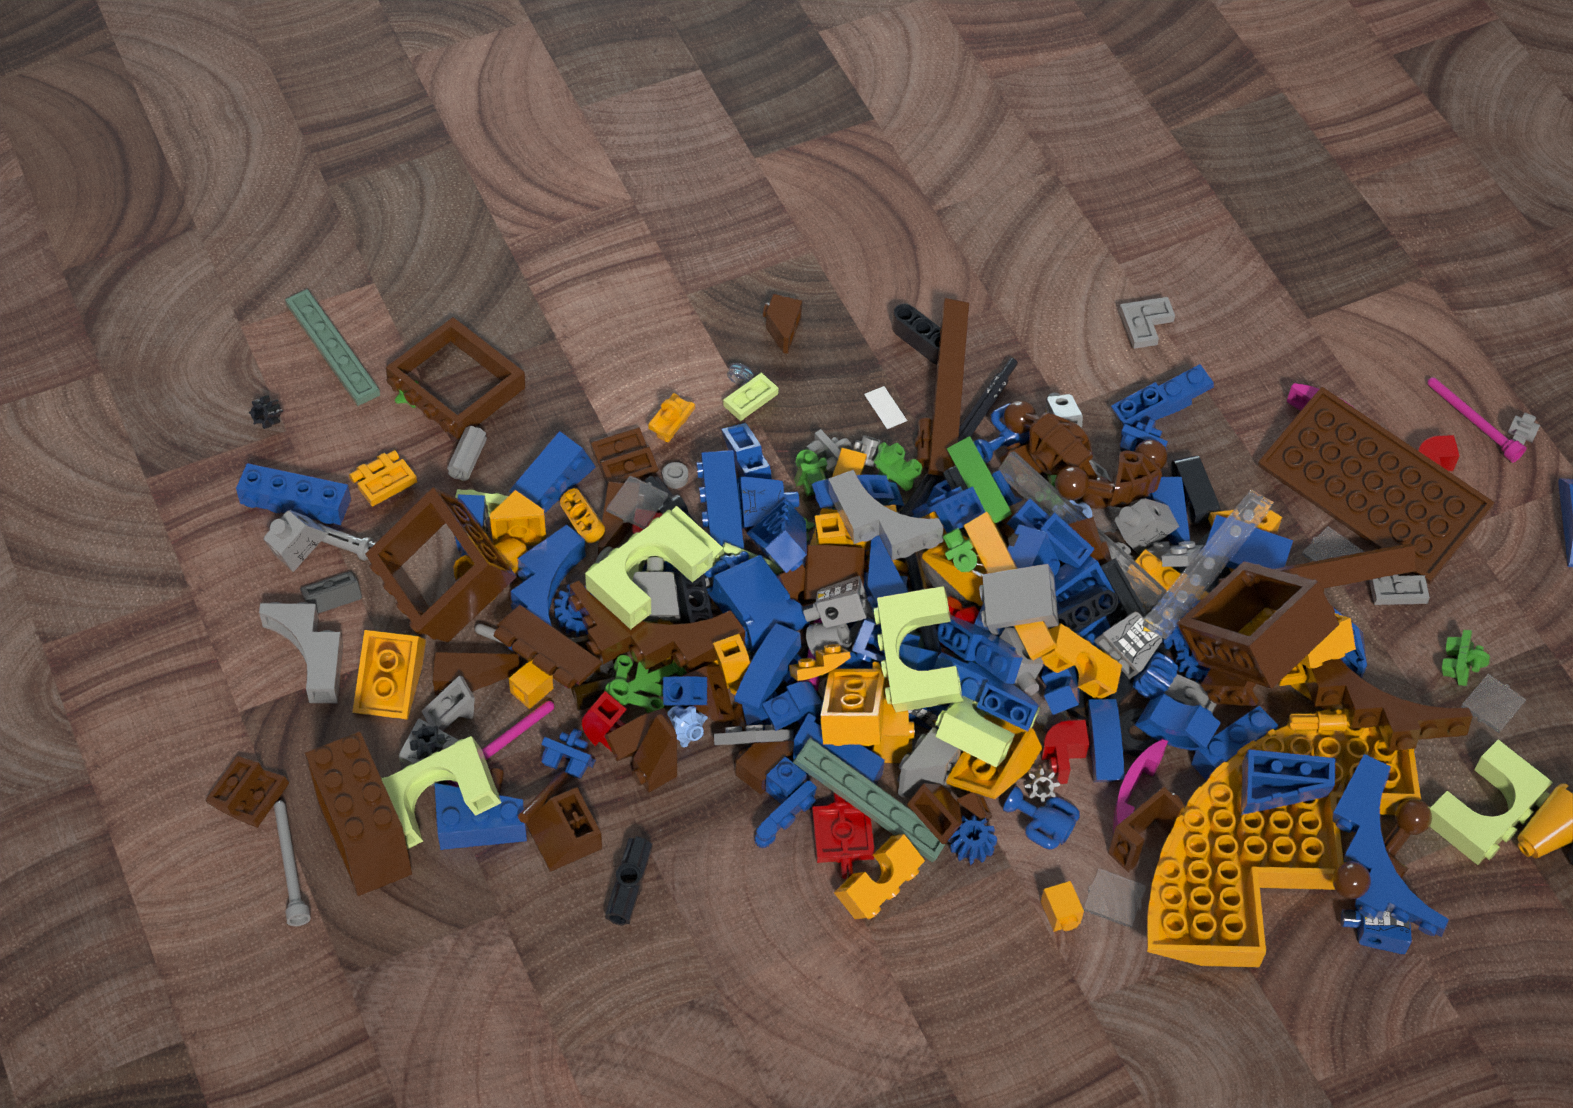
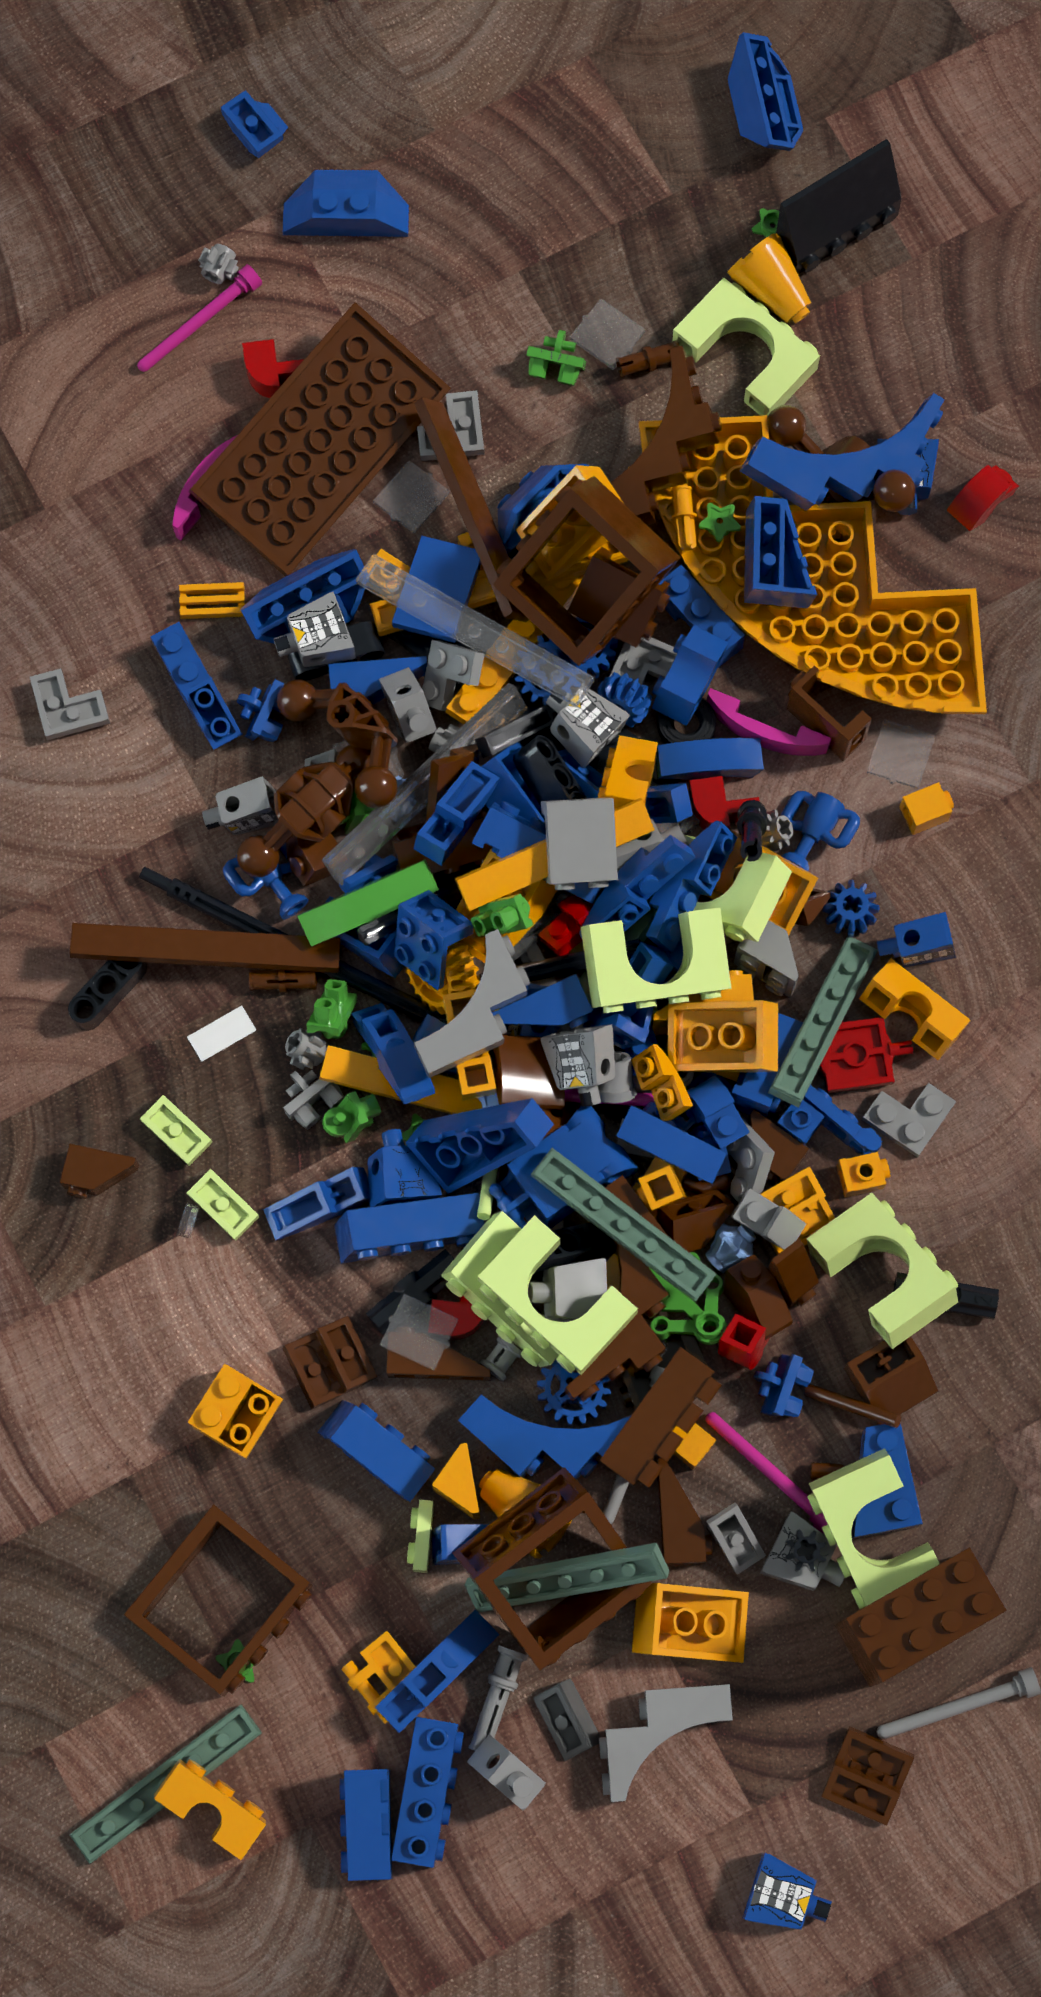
camera: 90 degrees left, 20 degrees up
(167, 719) = (783, 1896): none -> torso
(266, 411) = (294, 1853): black gear -> none
(284, 450) = (366, 1824): none -> blue wedge
(296, 379) = (188, 1786): none -> light orange arch
(373, 492) = (437, 1671): none -> blue slope
(432, 579) = (576, 1576): none -> sand green tile
(467, 453) = (340, 1569): light grey axle -> none
(588, 519) = (445, 1390): light orange beam -> none
(594, 389) = (235, 1411): none -> light orange slope
(633, 847) = (872, 1228): none -> yellowish green arch
(671, 417) = (268, 1303): light orange hips -> none
(675, 475) = (351, 1294): light grey tile -> none
(684, 691) = (706, 1241): blue brick -> none
(700, 742) = (768, 1219): none -> light grey slope
(702, 626) = (623, 1224): none -> sand green tile
(710, 771) = (805, 1199): none -> light orange slope
(739, 827) = (854, 1183): none -> light orange brick
(780, 876) = (912, 1126): none -> light grey plate
(810, 371) = (176, 1130): none -> yellowish green plate
(937, 810) = (828, 944): reddish brown slope -> none
(937, 879) = (932, 937): none -> blue torso
(1039, 747) = (751, 827): none -> black pin
(1205, 466) = (317, 634): none -> torso
(1232, 465) = (269, 608): none -> blue wedge
(1235, 399) = (213, 588): none -> light orange tile
(1313, 742) = (717, 529): none -> bright green plate
(1365, 977) = (982, 496): none -> red brick
(1475, 734) = (647, 359): none -> reddish brown pin

